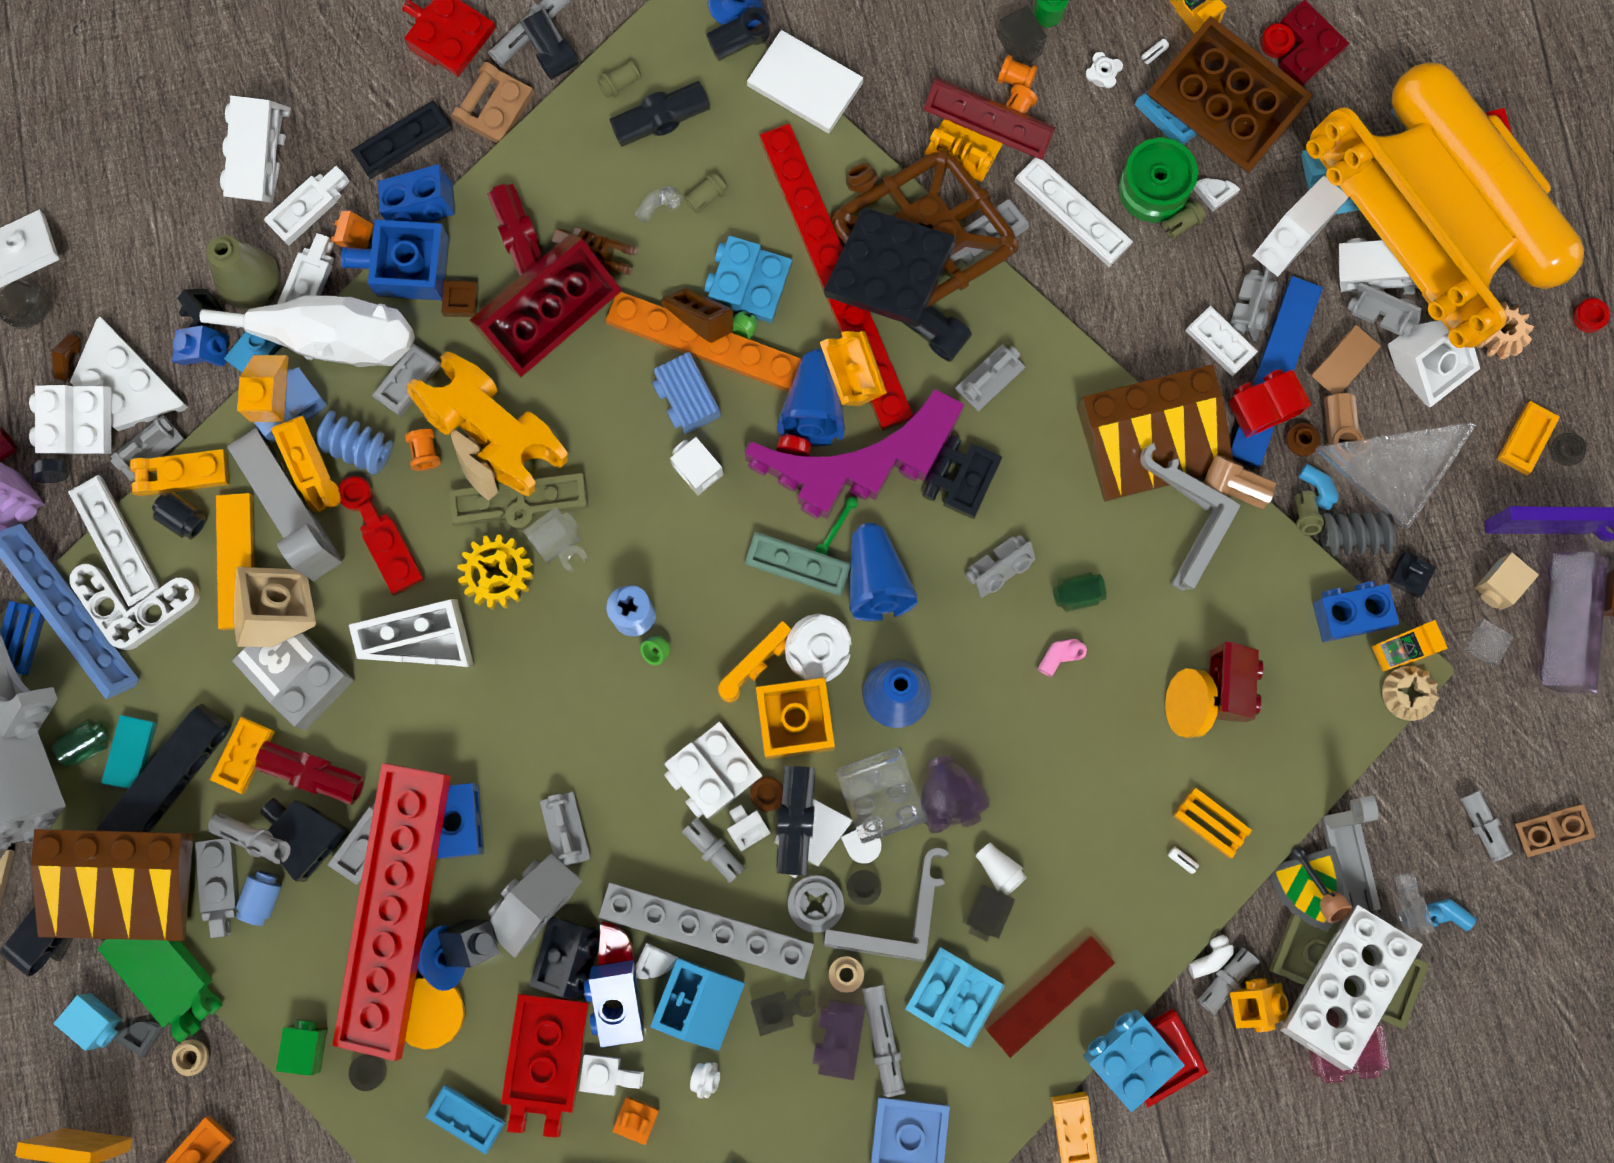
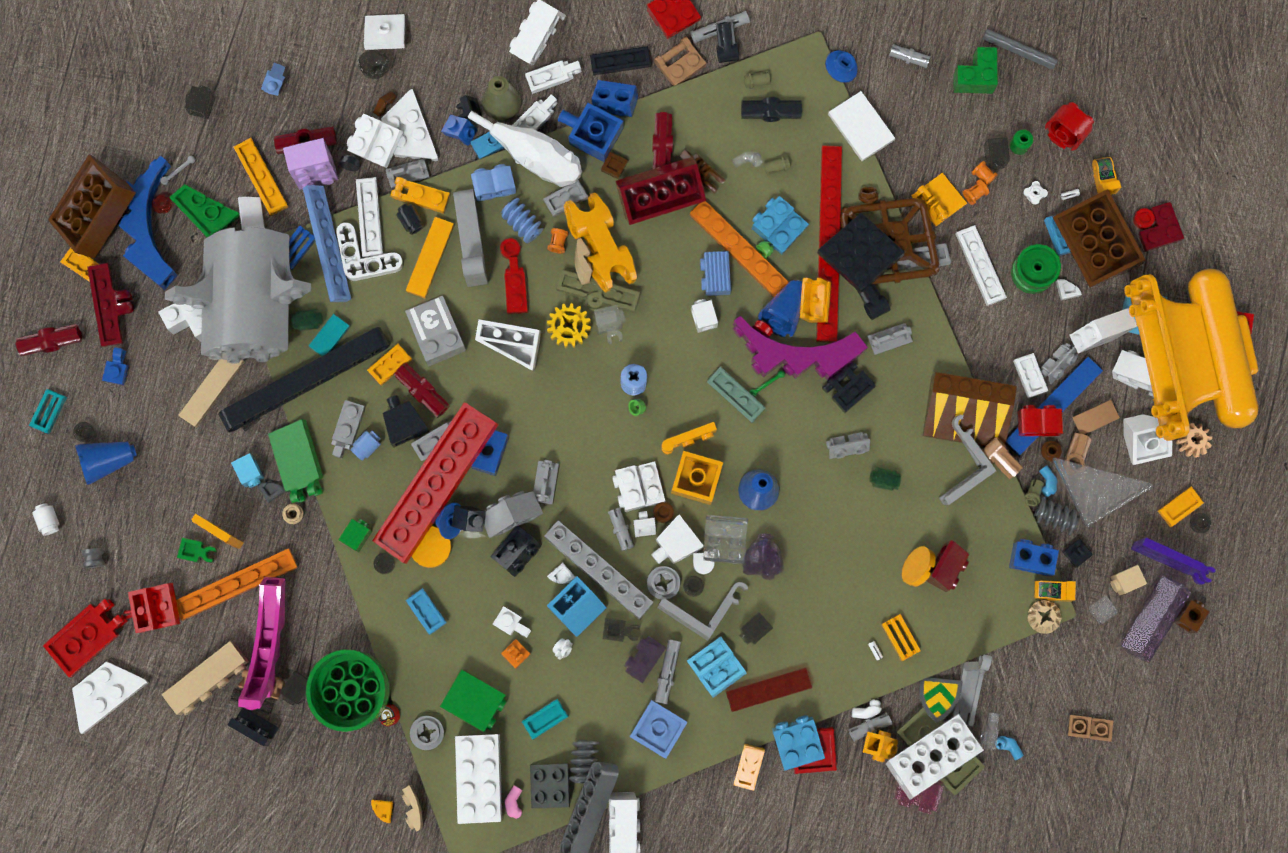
camera: 20 degrees right, 0 degrees up
(111, 884) = (294, 402): reddish brown slope -> none
(257, 841) = (379, 413): light grey pin -> none
(263, 388) = (487, 170): light orange slope -> none
(271, 606) = (440, 290): tan slope -> none
(306, 464) = (491, 221): light orange hinge -> none
(352, 231) = (571, 101): orange tile -> none
(544, 1061) = (481, 600): red tile -> none
(614, 945) = (542, 562): plate -> none
(619, 983) = (540, 576): brick -> none
(701, 314) = (744, 233): reddish brown slope -> none
(735, 35) = (833, 83): black piece -> none
(795, 820) = (673, 531): black piece -> none
(818, 647) = (726, 445): white tile -> none
(837, 966) = (670, 627): tan plate -> none
(877, 576) = (777, 421): blue cone -> none
(989, 118) = (956, 192): dark red tile -> none
(1001, 869) = (773, 611): white cone -> none
(1060, 652) = (859, 507): bright pink arm -> none
(1185, 219) = (1041, 298): olive pin -> none
(1332, 905) = (945, 710): nougat hinge -> none
(1400, 314) = (1126, 391): light grey hinge -> none
(1486, 825) = (1053, 708): light grey pin -> none
(1591, 315) = (1250, 454): red tile -> none

